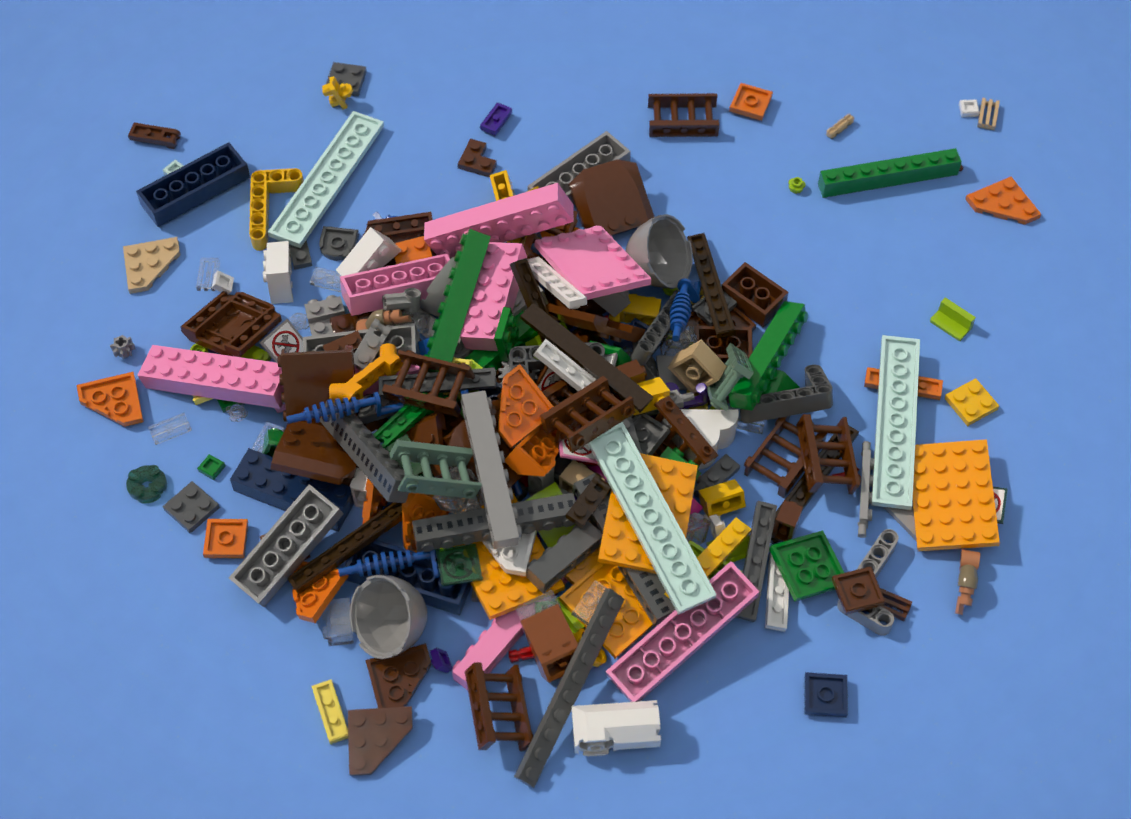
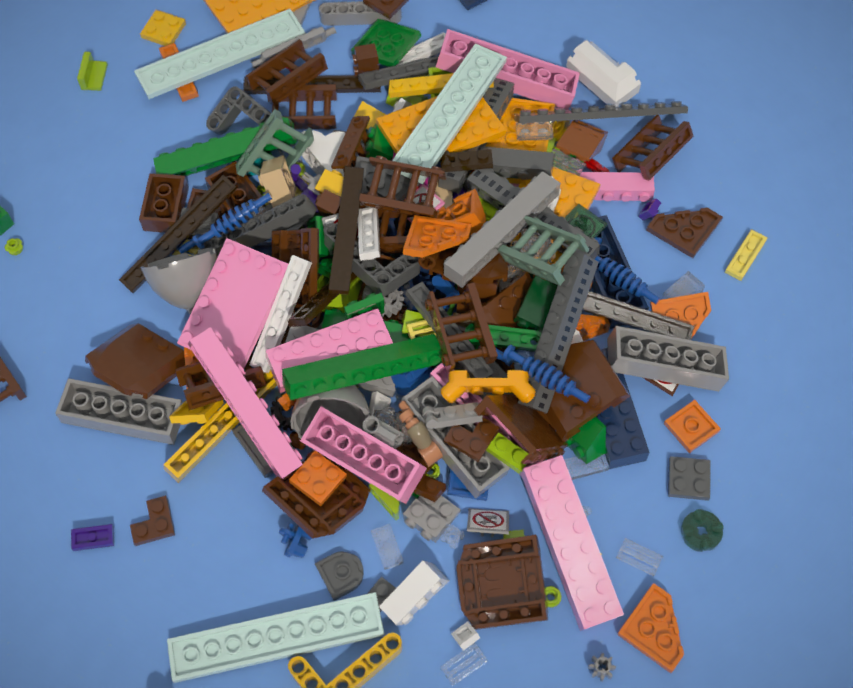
camera: 125 degrees left, 5 degrees up
(211, 467) = (643, 493): green tile -> none
(370, 253) = (356, 500): white wedge -> none
(375, 735) = (737, 210): reddish brown plate -> none
(387, 616) = (658, 245): light grey piece -> none

